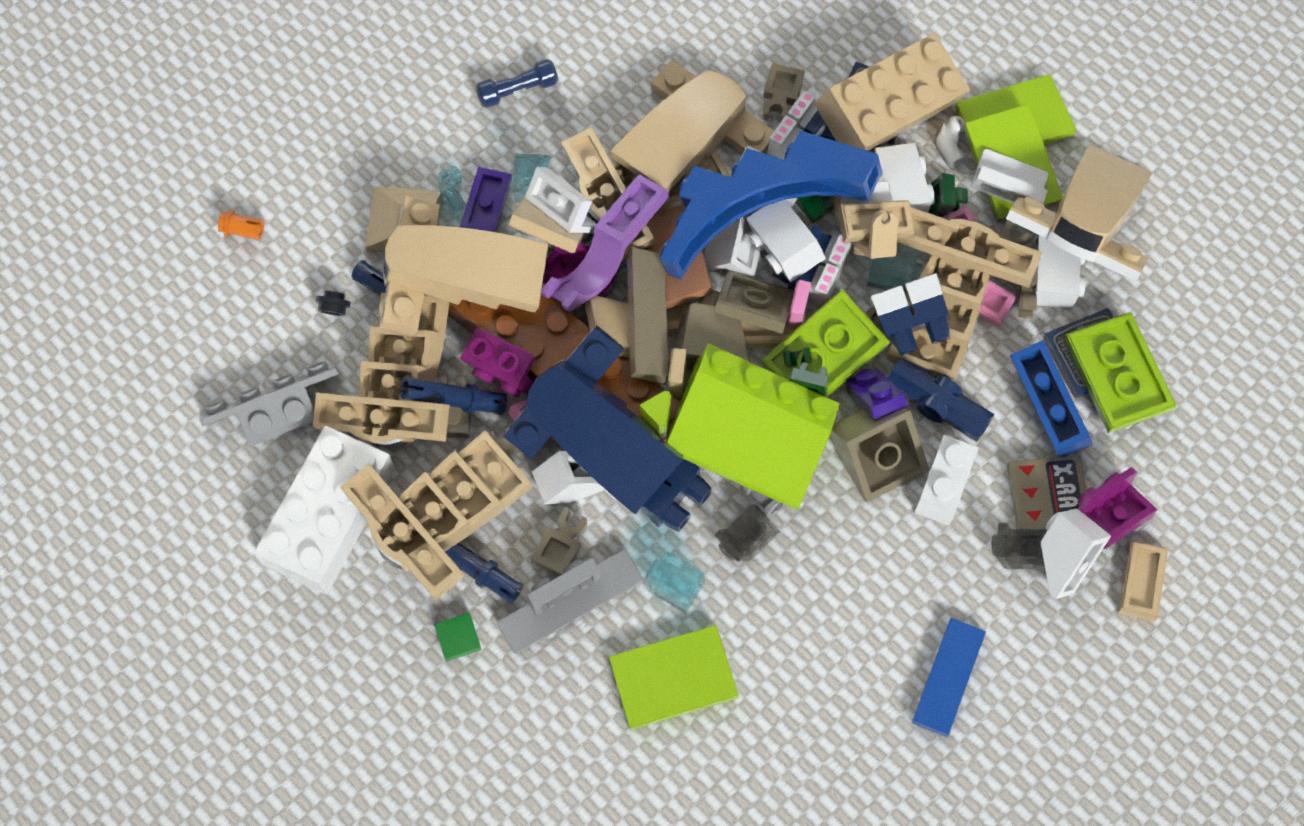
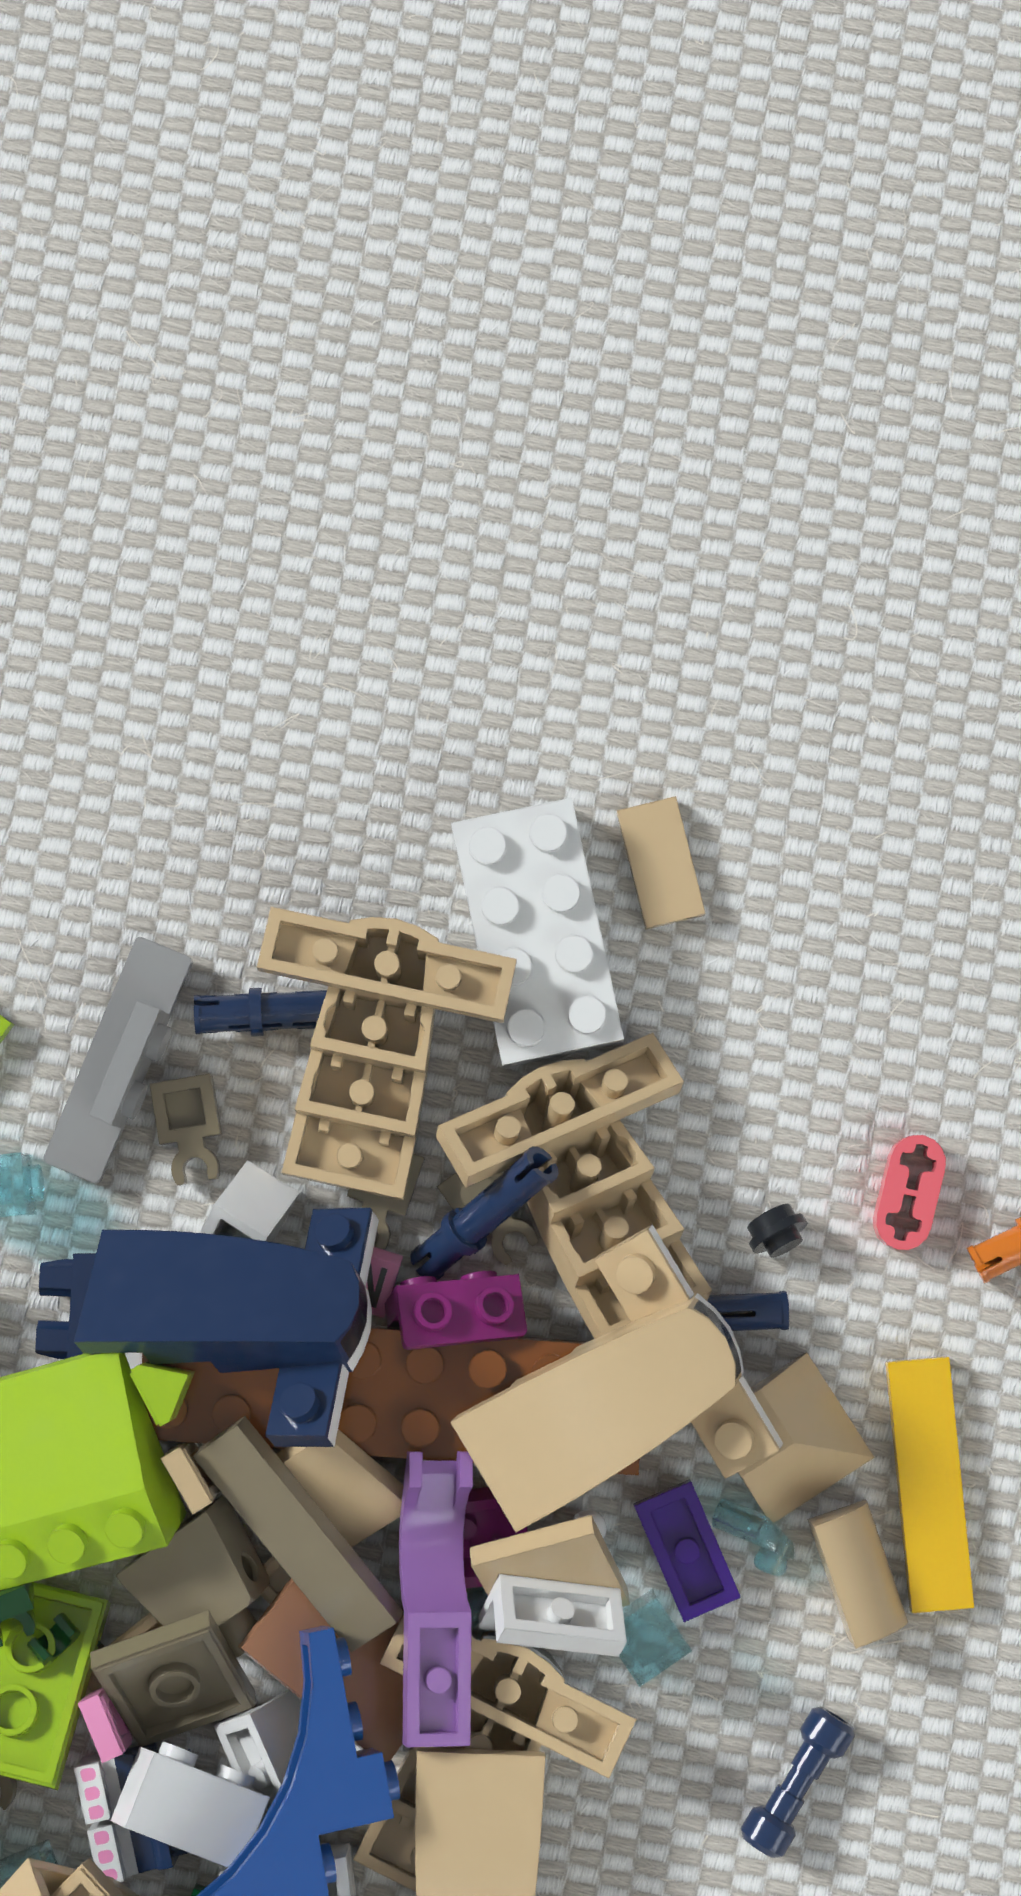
camera: 145 degrees right, 15 degrees up
(243, 505) = (660, 863): none -> tan tile
(262, 280) = (923, 1196): none -> coral beam
(275, 409) = (733, 1022): light grey bracket -> none
(359, 160) = (929, 1484): none -> yellow tile
(422, 144) = (858, 1573): none -> tan brick
(457, 637) = (232, 903): green tile -> none

